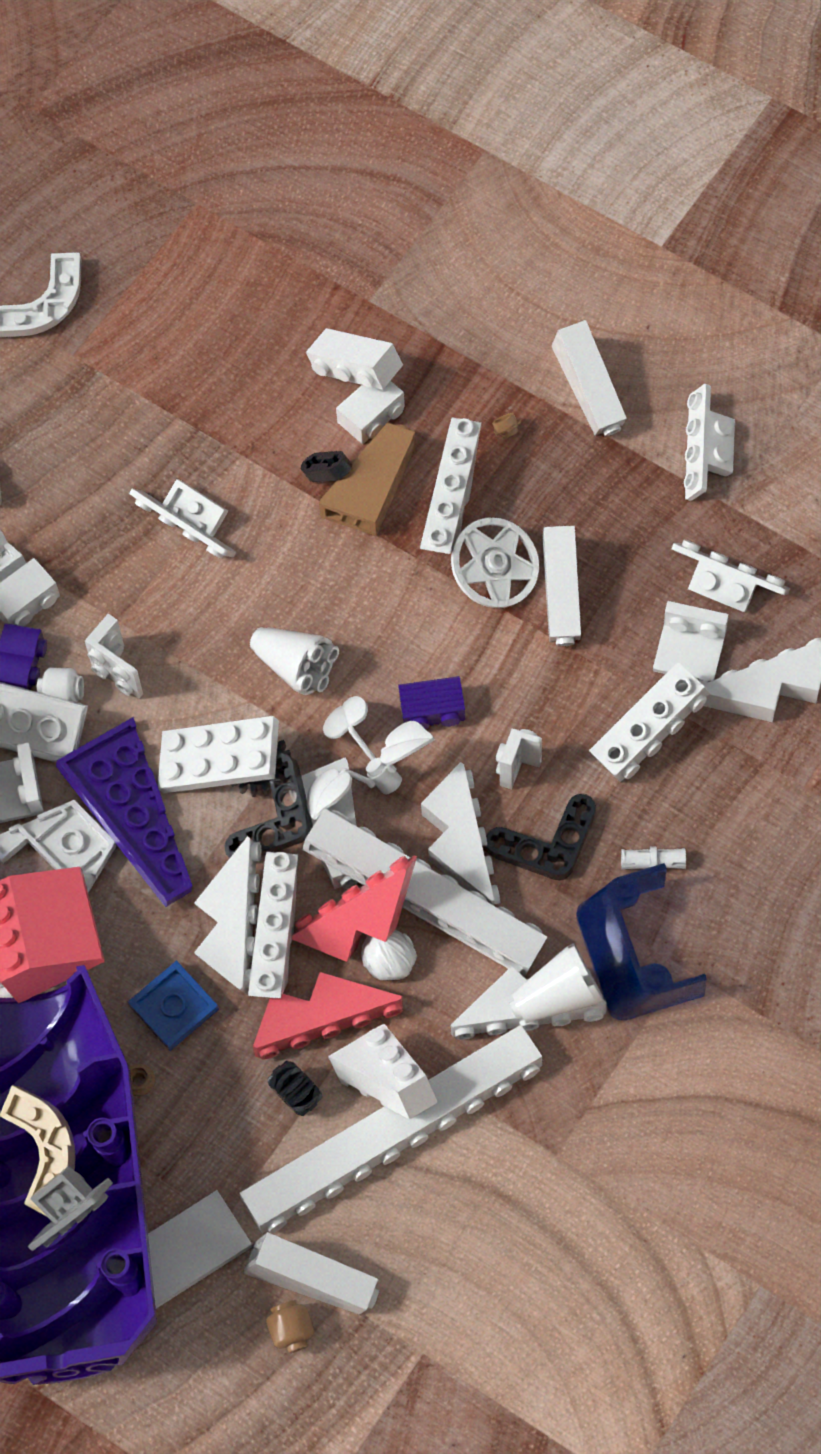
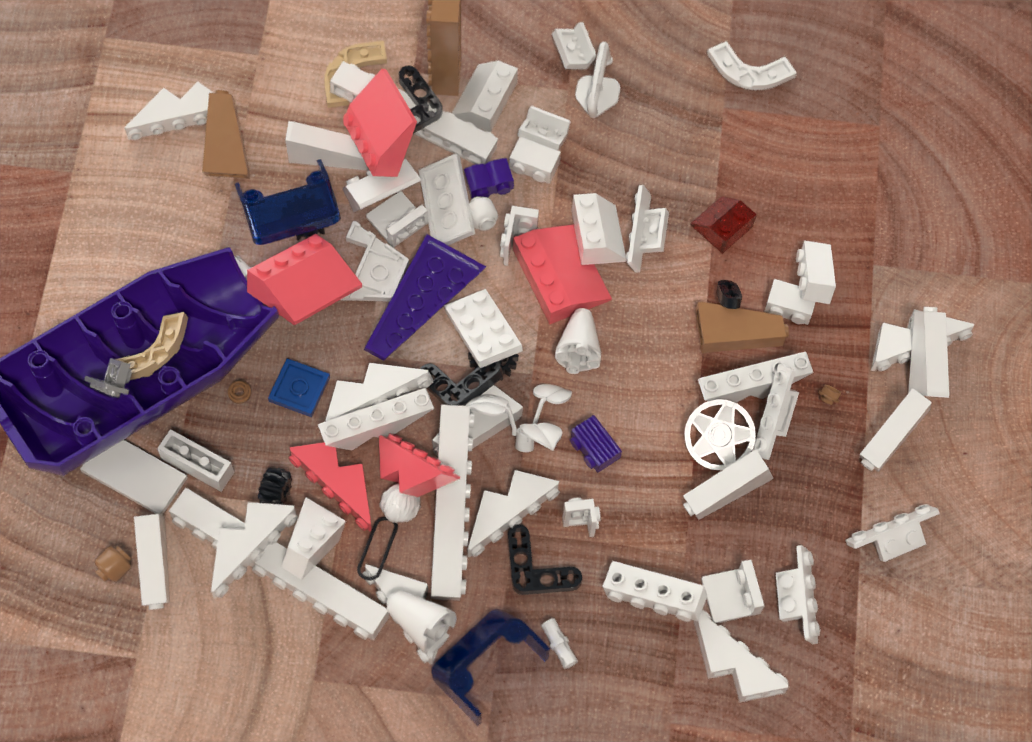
camera: 55 degrees right, 0 degrees up
(159, 570) = (597, 230): none -> white slope
(189, 638) = (556, 274): none -> coral slope
(207, 1167) = (195, 460): none -> white brick
(227, 427) = (724, 222): none -> clear red slope
(358, 1157) = (240, 547): none -> white slope
(429, 1016) = (367, 547): none -> black piece
(485, 295) = (895, 342): none -> white slope
(502, 486) = (777, 411): none -> white bracket
(525, 295) = (929, 354): none -> white slope

